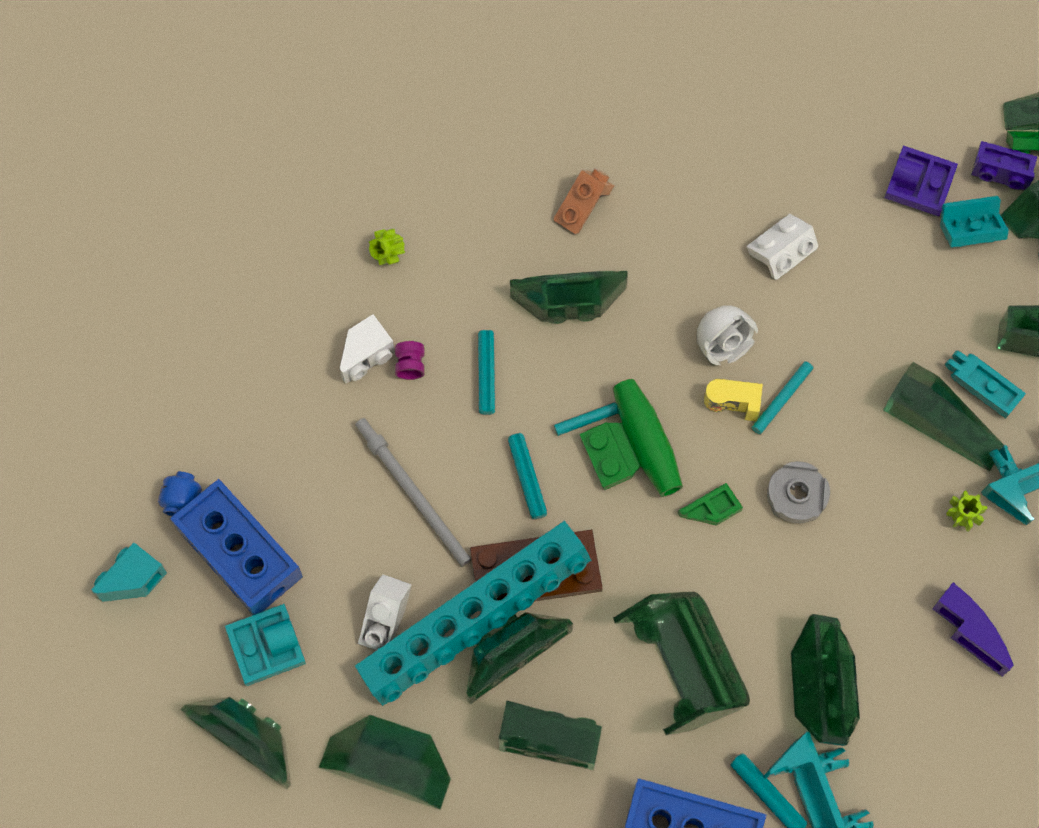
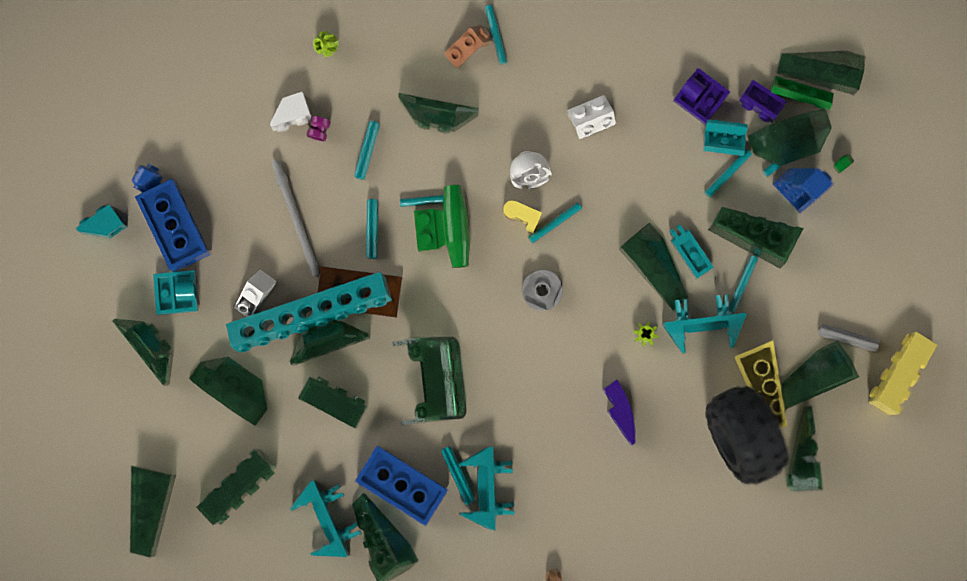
camera: 20 degrees right, 15 degrees up
(616, 178) = (495, 34): none -> teal bar
(713, 507) = (485, 284): green tile -> none
(825, 681) = (515, 419): clear green wedge -> none
(993, 270) = (728, 173): none -> teal bar

